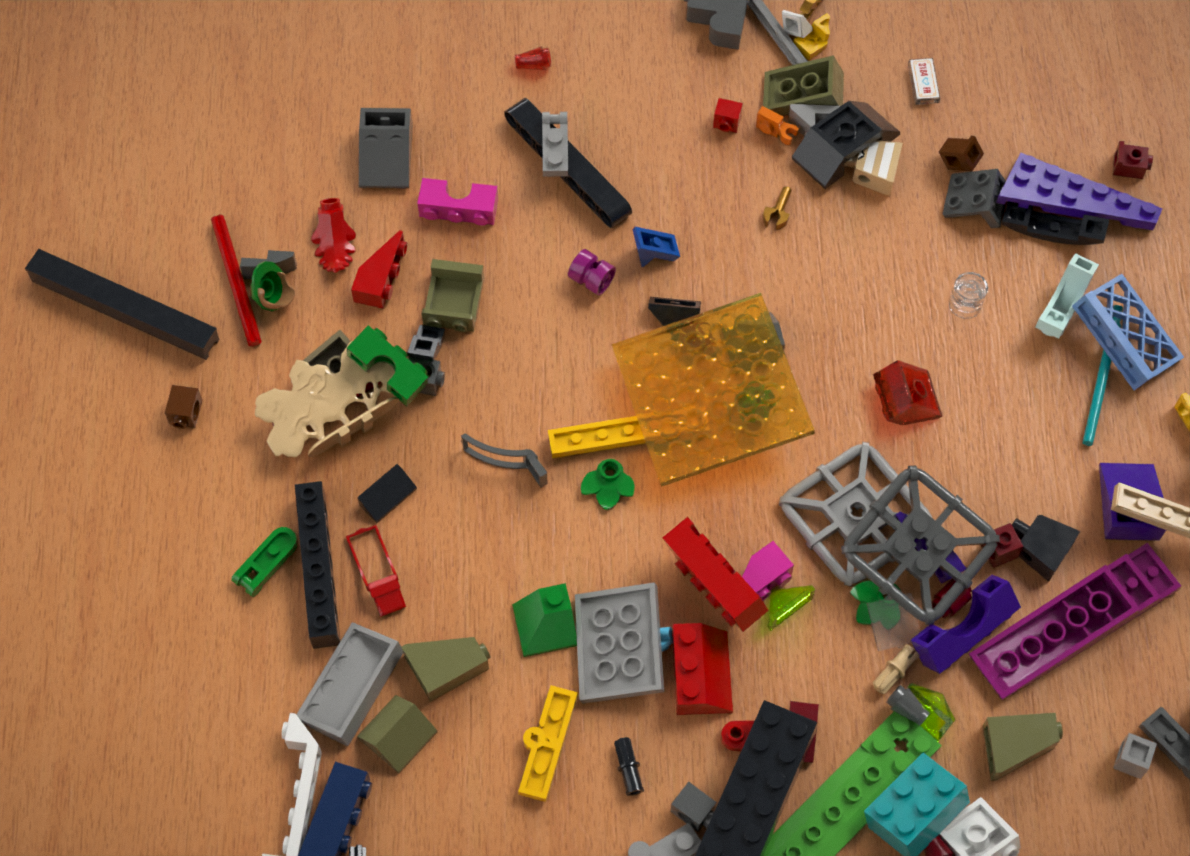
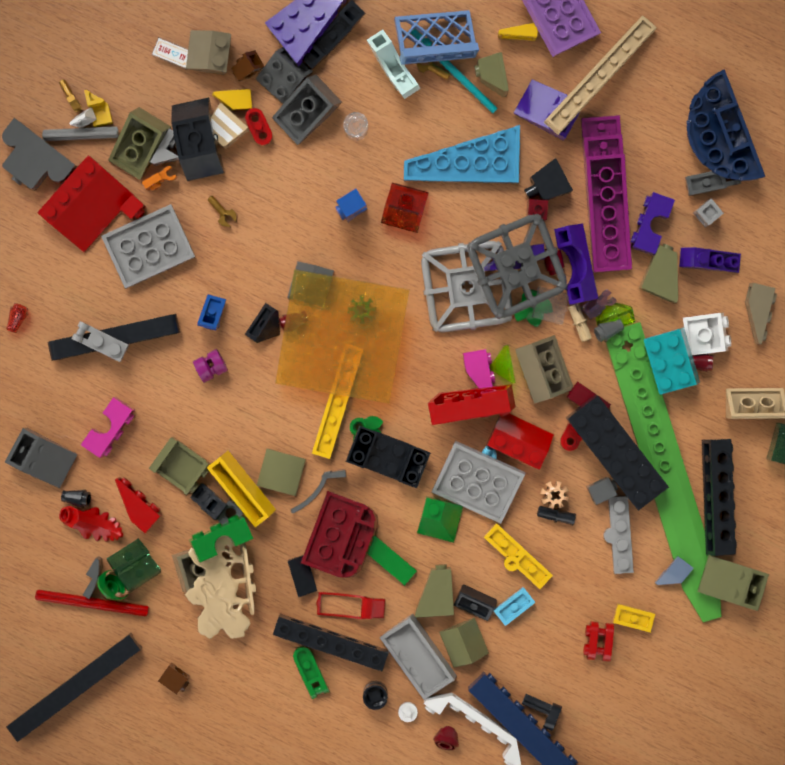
camera: 65 degrees left, 25 degrees up
(255, 770) = (446, 738): none -> dark red cone
(268, 706) = (407, 712): none -> white tile
(273, 649) = (375, 695): none -> black wheel
(305, 299) = (134, 565): none -> clear green slope
(356, 208) = (79, 498): none -> black cone
(457, 721) = (475, 602): none -> black slope
(460, 513) = (341, 536): none -> dark red plate
(460, 587) = (391, 561): none -> green tile
(461, 370) = (241, 488): none -> yellow brick
(478, 771) = (514, 606): none -> medium azure plate
(505, 409) = (281, 472): none -> olive slope
(591, 512) = (388, 456): none -> black slope
(646, 742) = (560, 493): none -> light nougat piece
(693, 151) = (148, 246): none -> light grey plate
(701, 66) = (85, 203): none -> red slope
(810, 653) = (544, 369): none -> dark tan slope
(872, 324) = (350, 205): none -> blue arch
(898, 200) = (258, 127): none -> red plate
(915, 161) = (235, 99): none -> yellow slope
(925, 677) = (594, 307): none -> plate
(951, 111) = (208, 51): none -> dark tan slope
(954, 237) = (306, 109): none -> dark grey slope
(1014, 448) = (483, 160): none -> dark azure wing
(1076, 793) = (709, 259): none -> dark purple slope
(1091, 361) = (434, 68): none -> pearl gold bar
(1098, 689) = (645, 239): none -> dark purple arch
(1132, 412) = (492, 73): none -> olive slope

